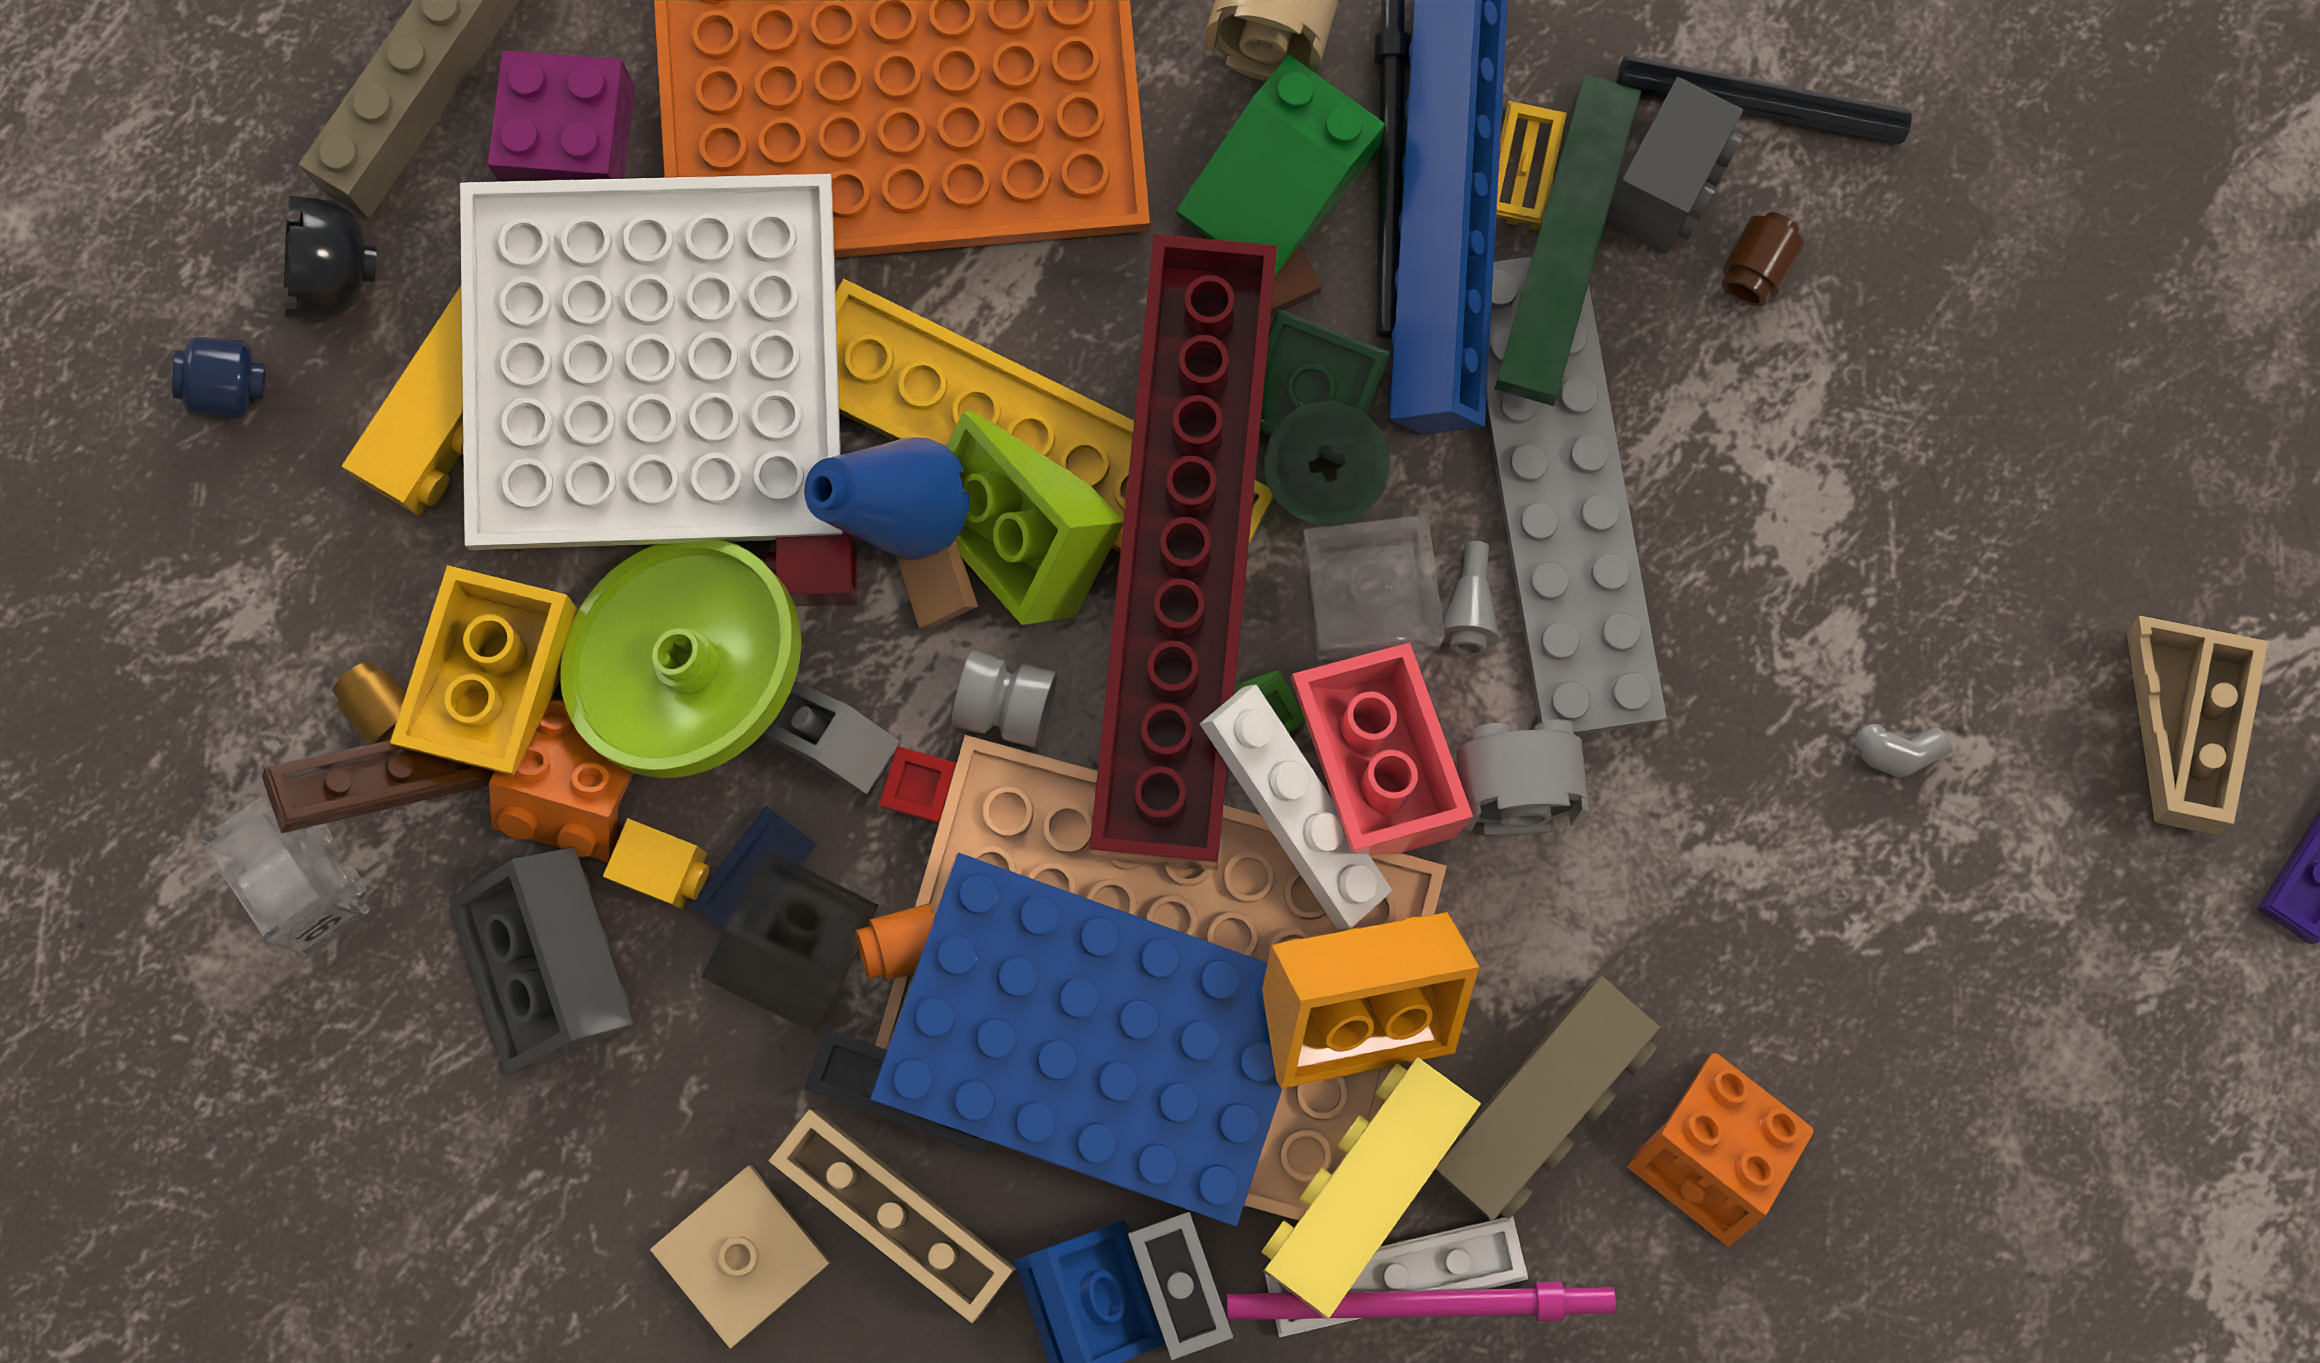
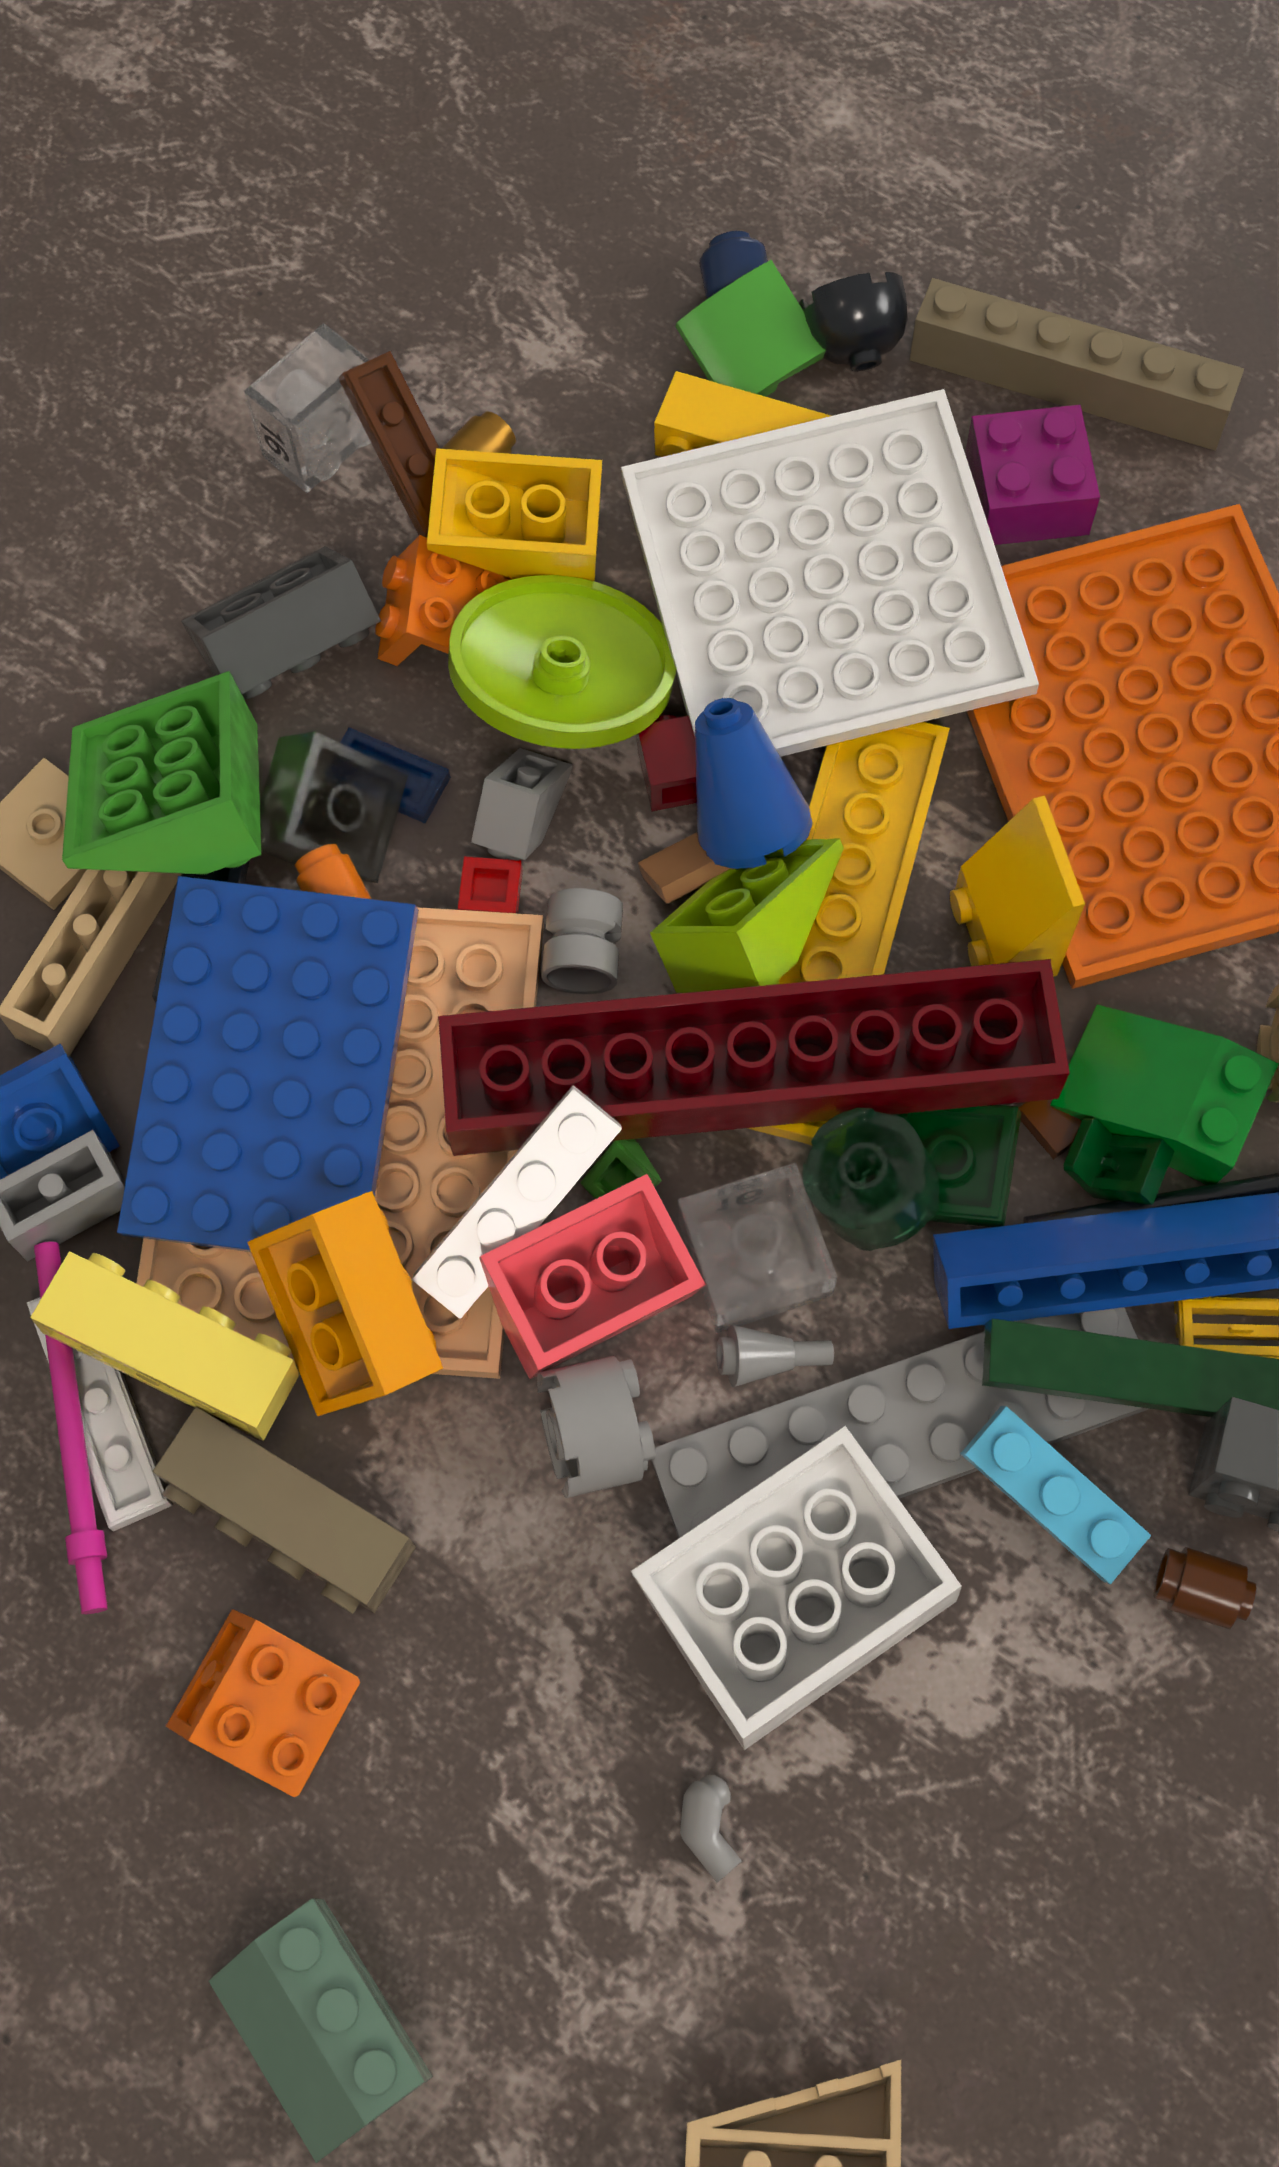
camera: 80 degrees right, 10 degrees down
(308, 378) = (751, 333): none -> bright green slope
(657, 865) = (378, 690): yellow brick -> none
(741, 1107) = (166, 784): none -> bright green slope
(1068, 251) = (1019, 893): none -> yellow slope
(1348, 231) = (1116, 1164): none -> dark green bracket
(1655, 368) = (1055, 1494): none -> medium azure plate
(1710, 619) = (796, 1586): none -> white slope
(2028, 1134) = (319, 2028): none -> sand green slope

